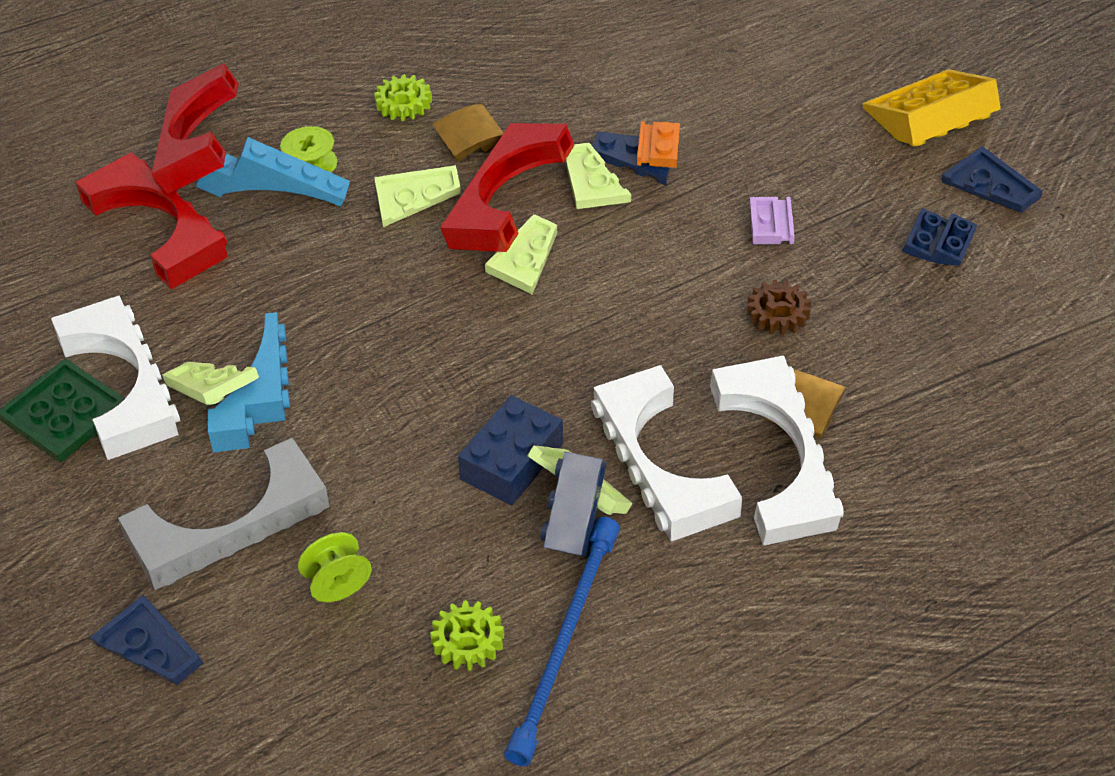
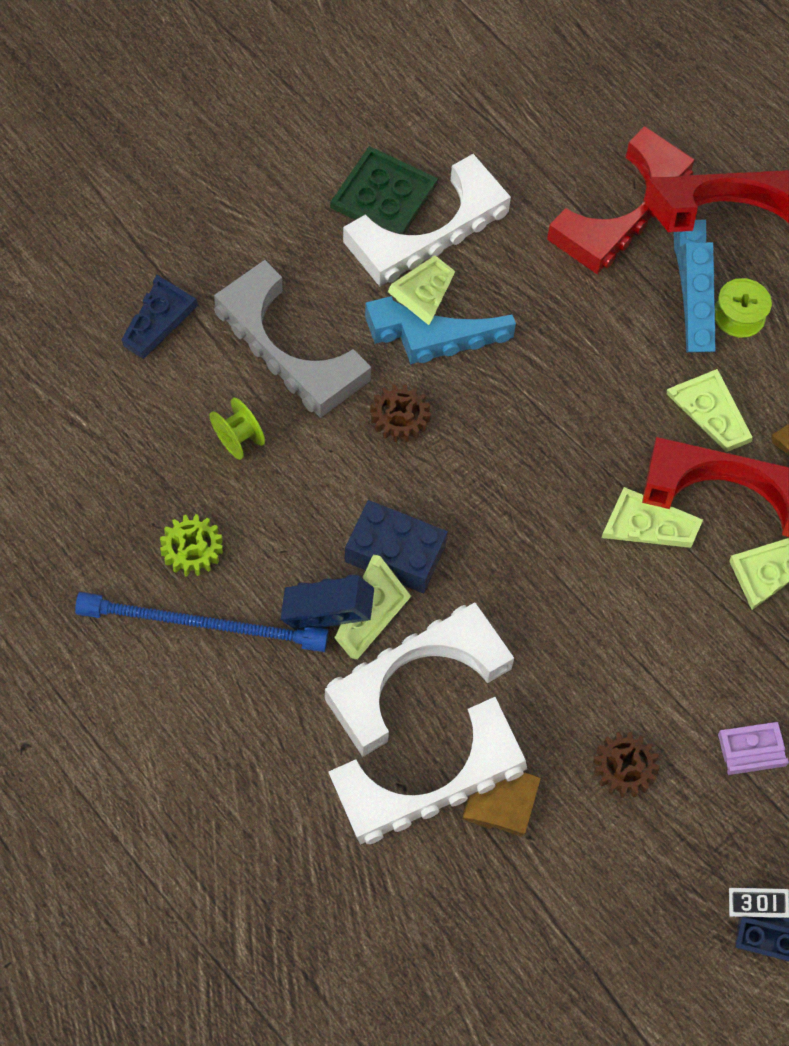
camera: 75 degrees right, 15 degrees up
(350, 428) = (400, 413): none -> reddish brown gear
(923, 236) = (758, 902): none -> sticker

